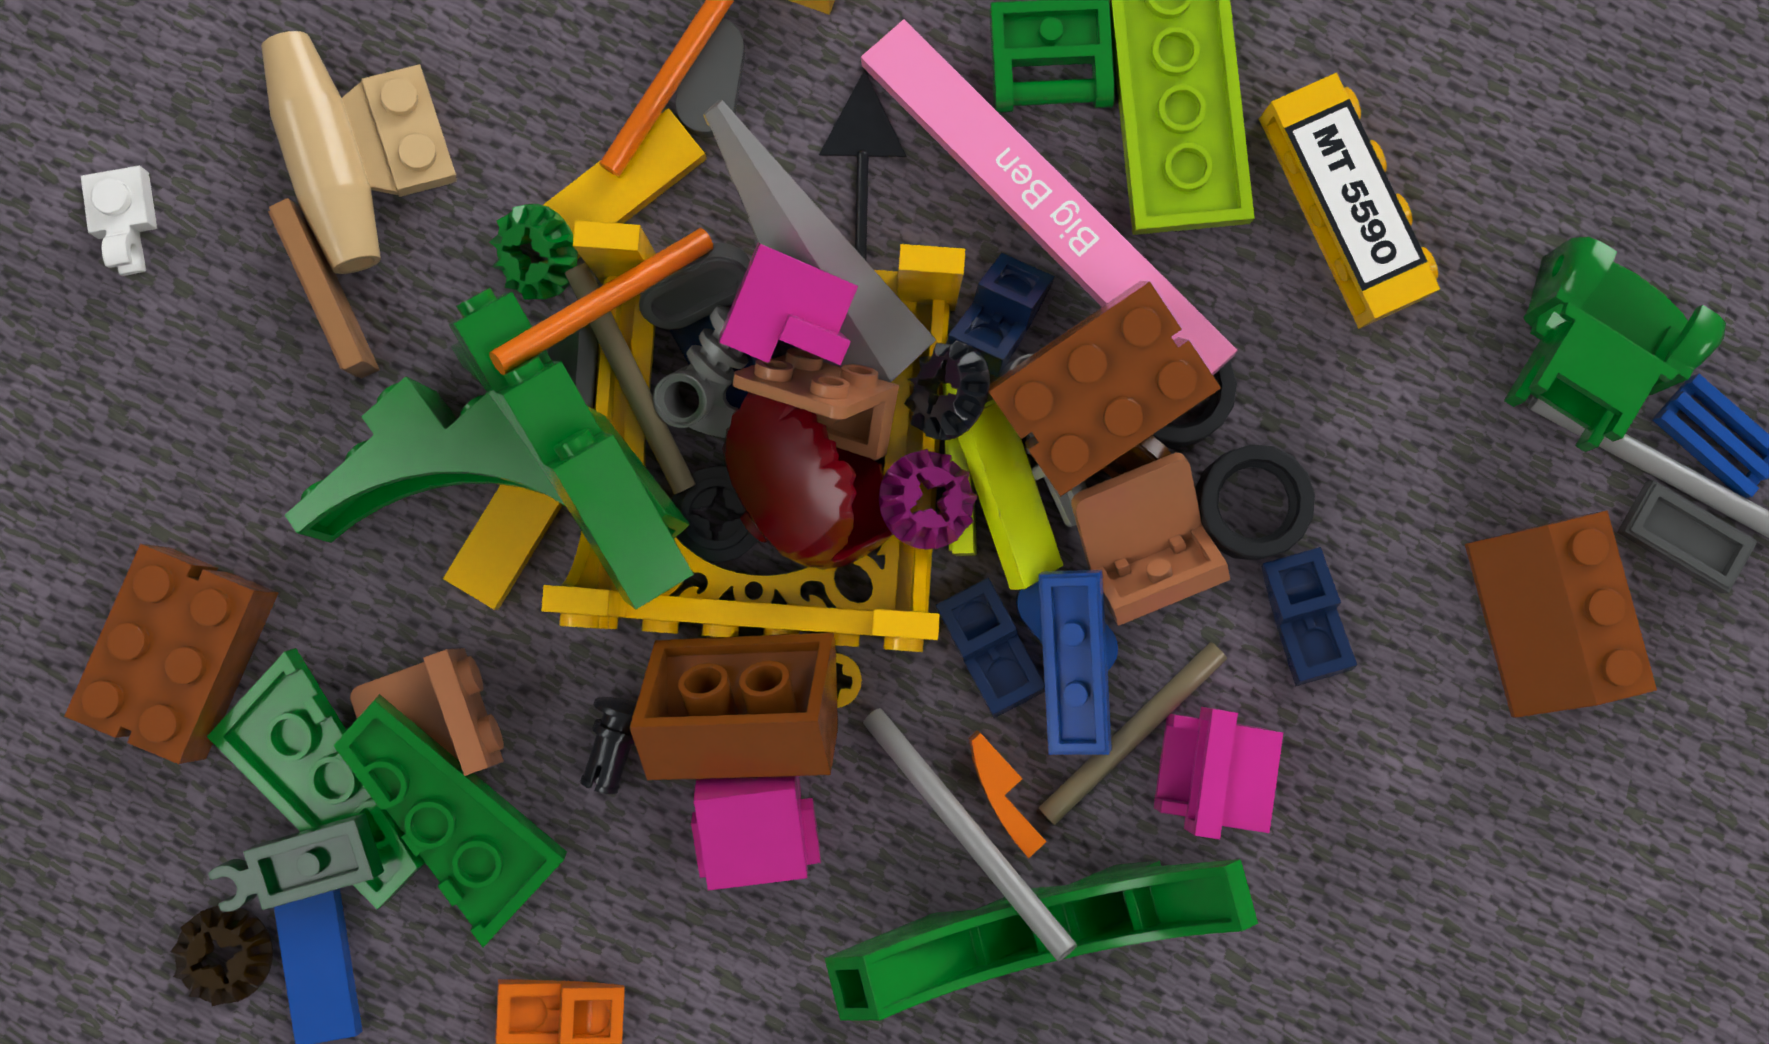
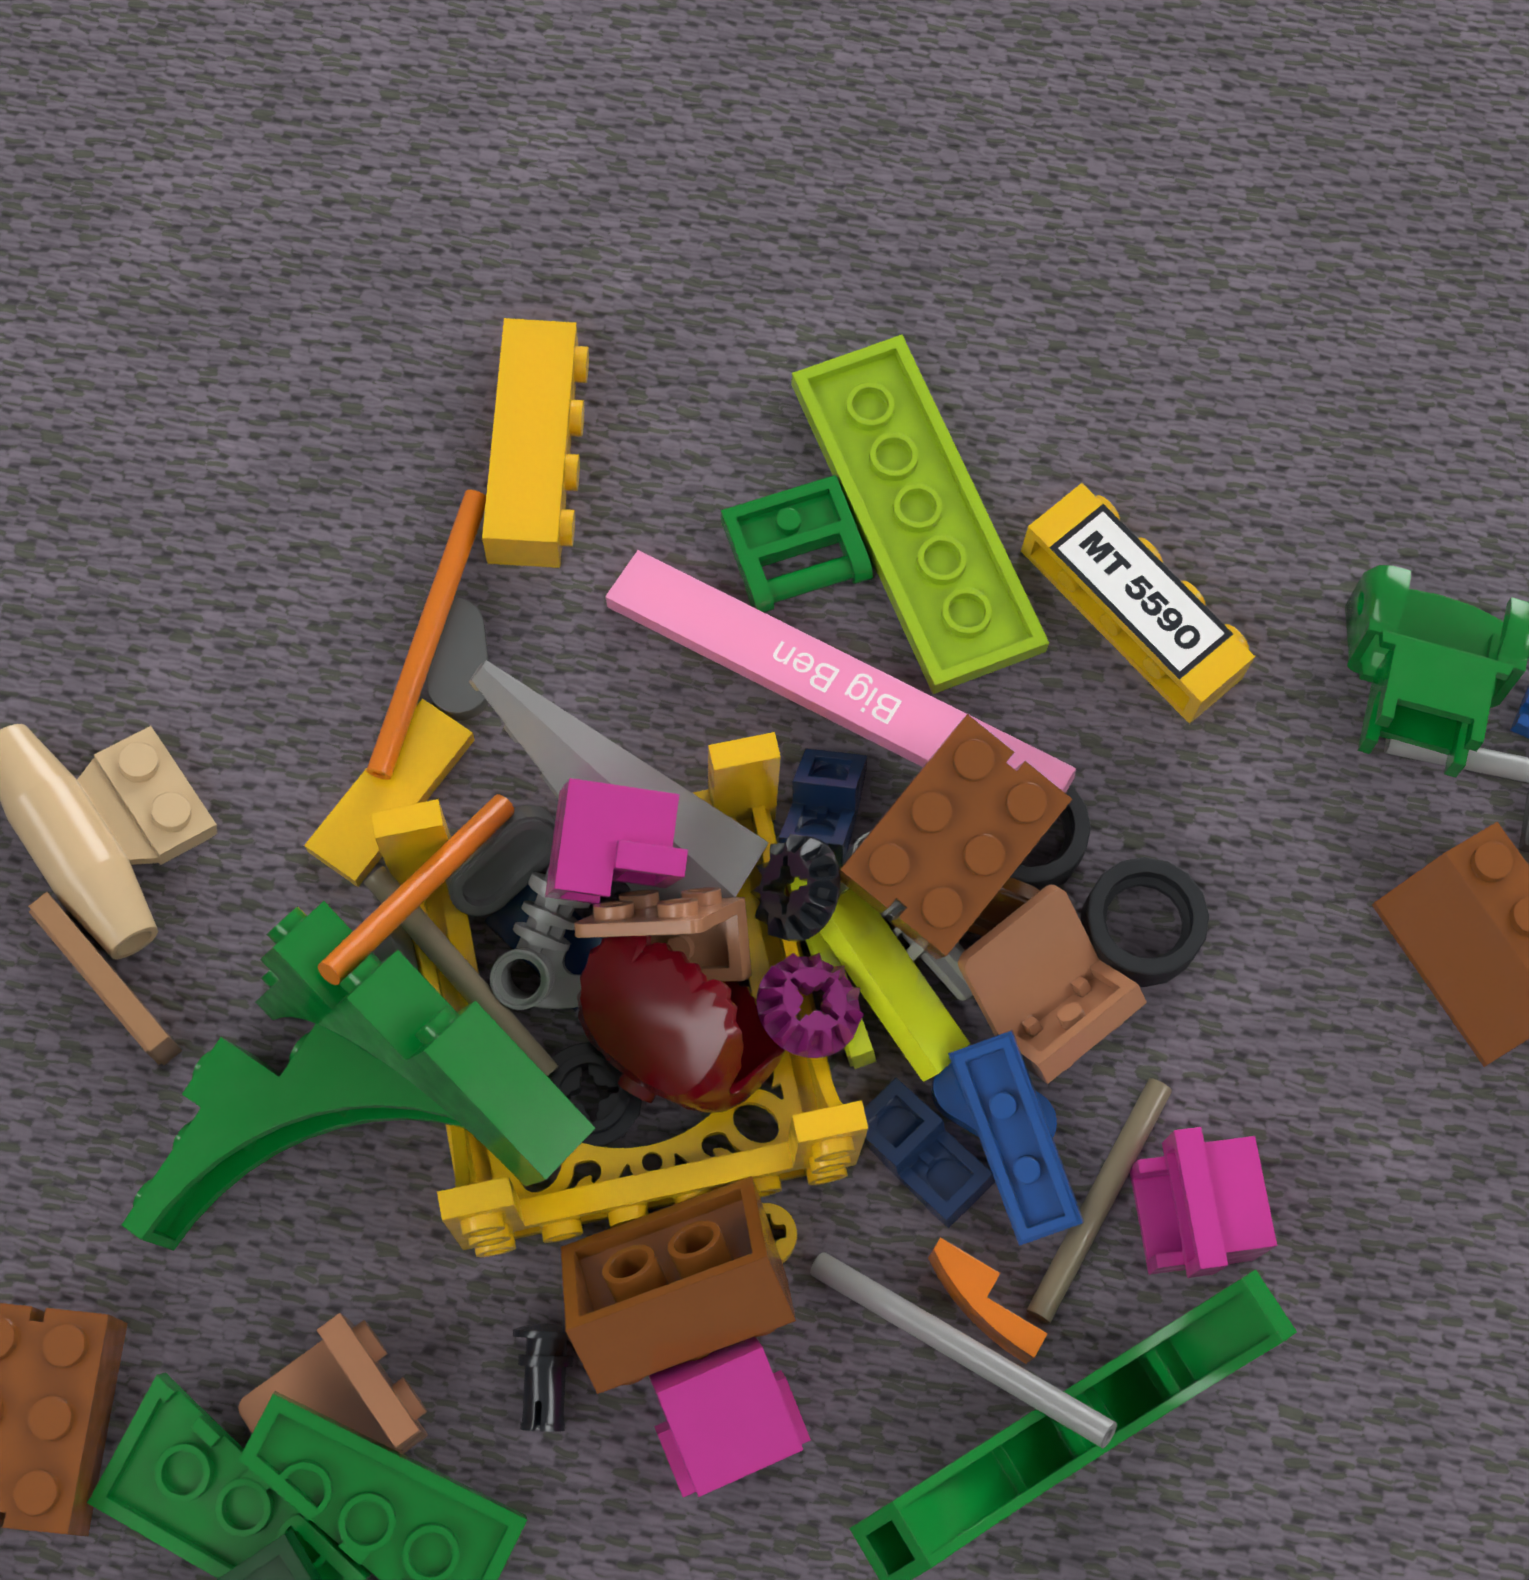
camera: 15 degrees left, 15 degrees down
(502, 544) = (365, 1191): yellow tile -> none
(547, 235) = (334, 855): green gear -> none
(865, 133) = (628, 670): black piece -> none
(1307, 616) = (1238, 1024): dark blue slope -> none

